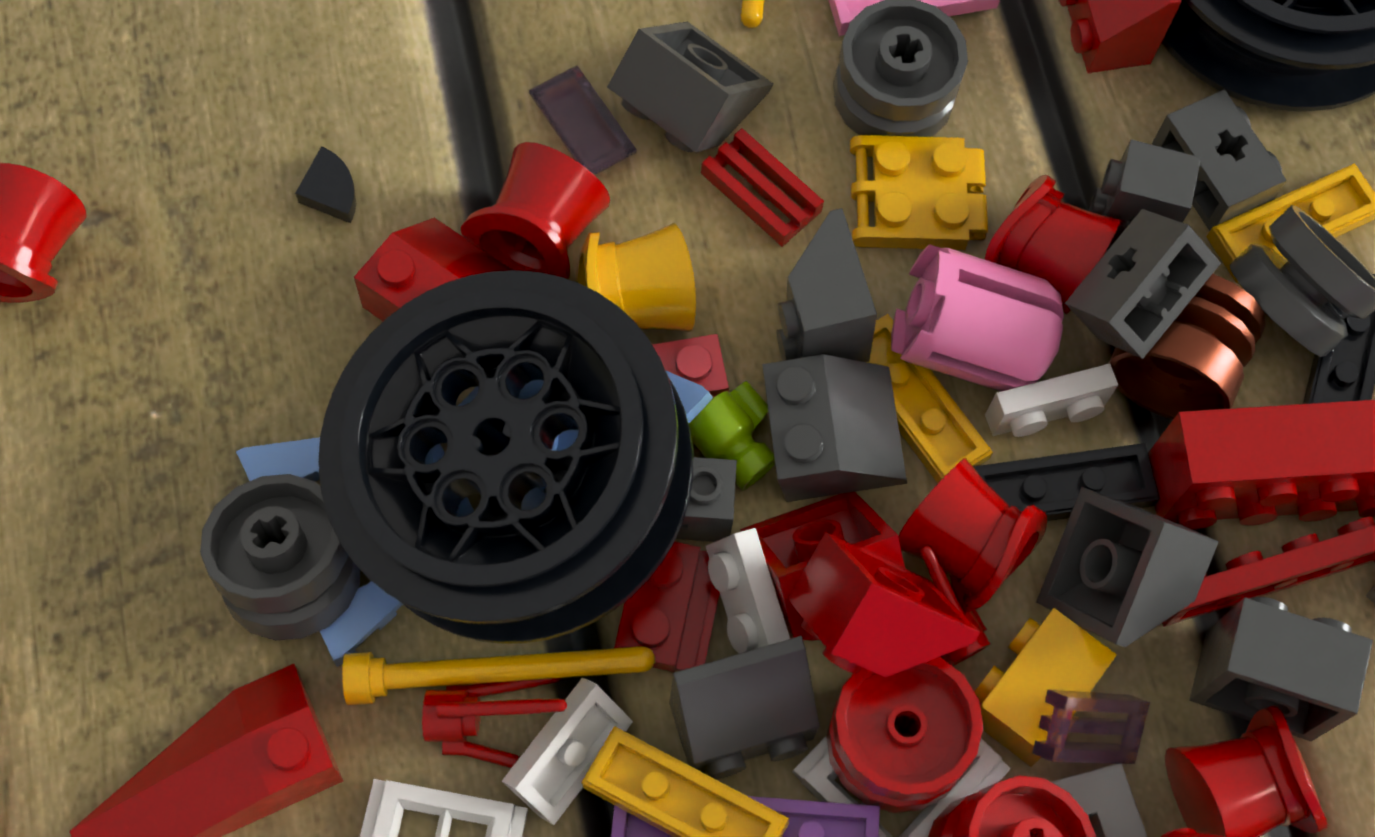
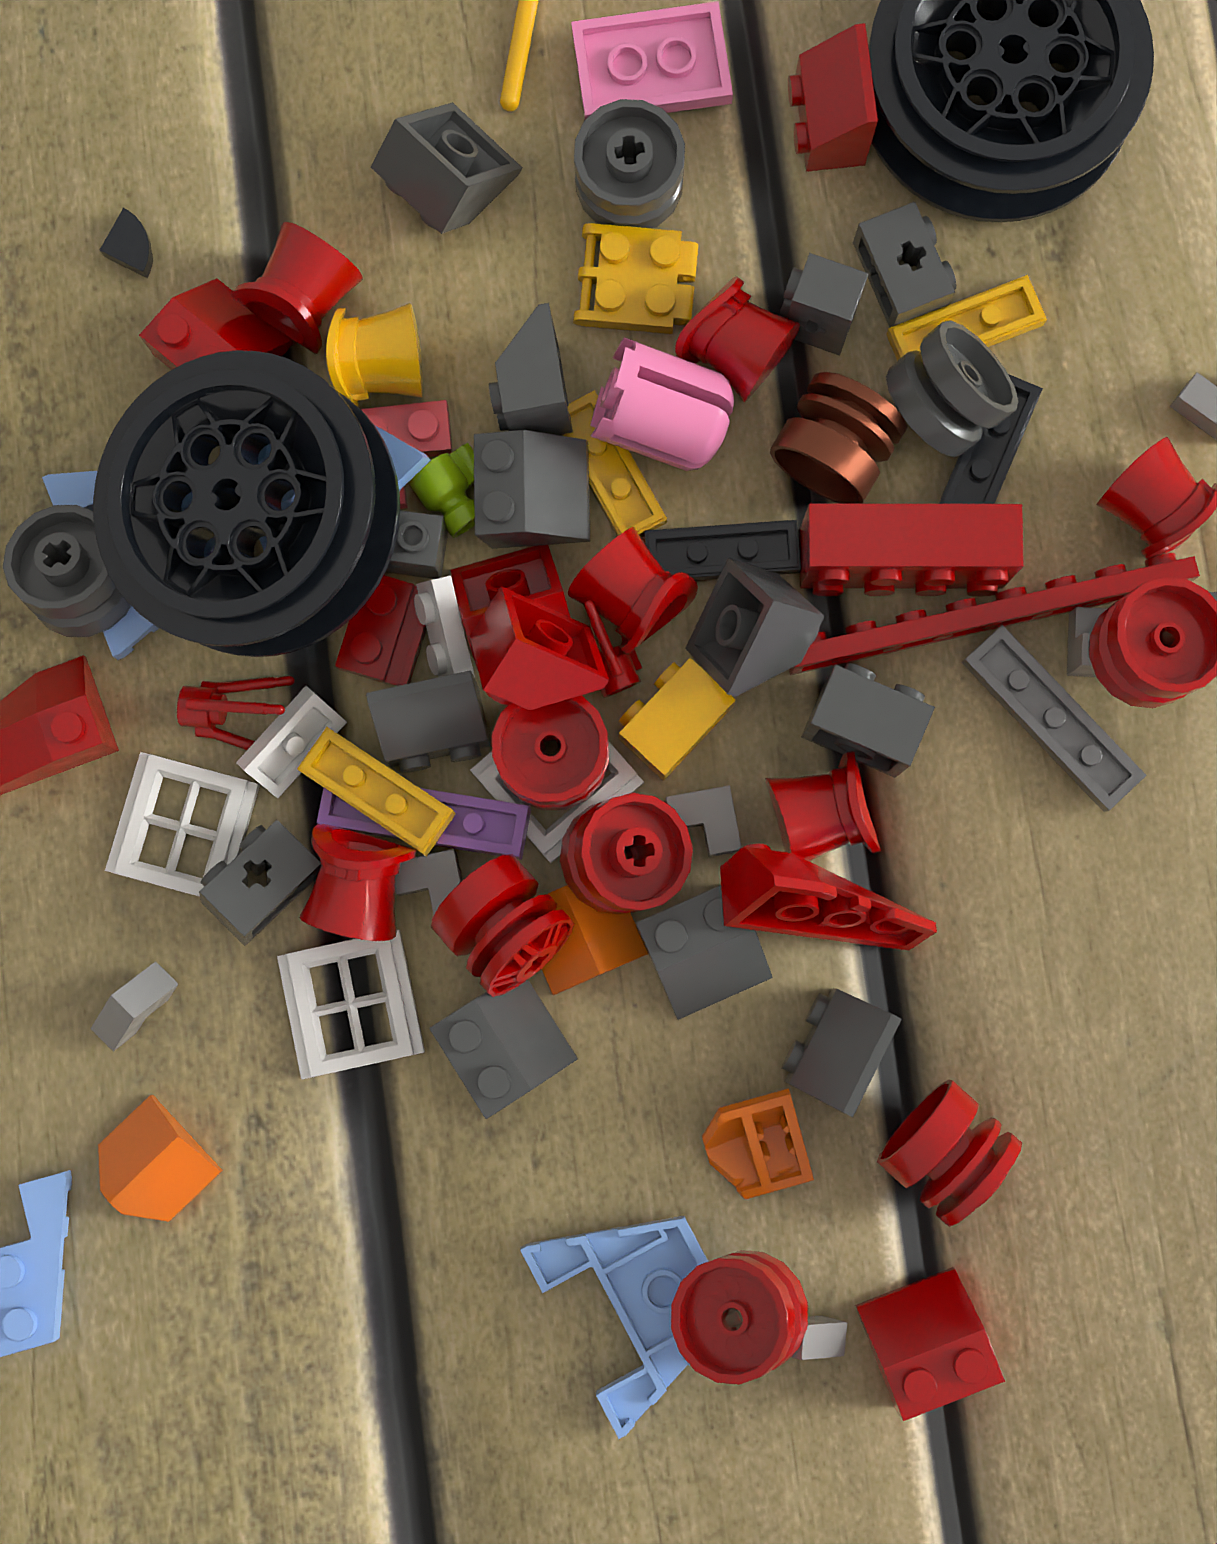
camera: 15 degrees right, 15 degrees up
(372, 677) = (138, 672): yellow piece -> none
(582, 120) = (350, 195): tile -> none
(779, 174) = (474, 234): red tile -> none
(1032, 406) = (742, 475): white plate -> none
(1062, 722) = (679, 736): tile -> none
(1143, 282) = (796, 387): dark grey brick -> none

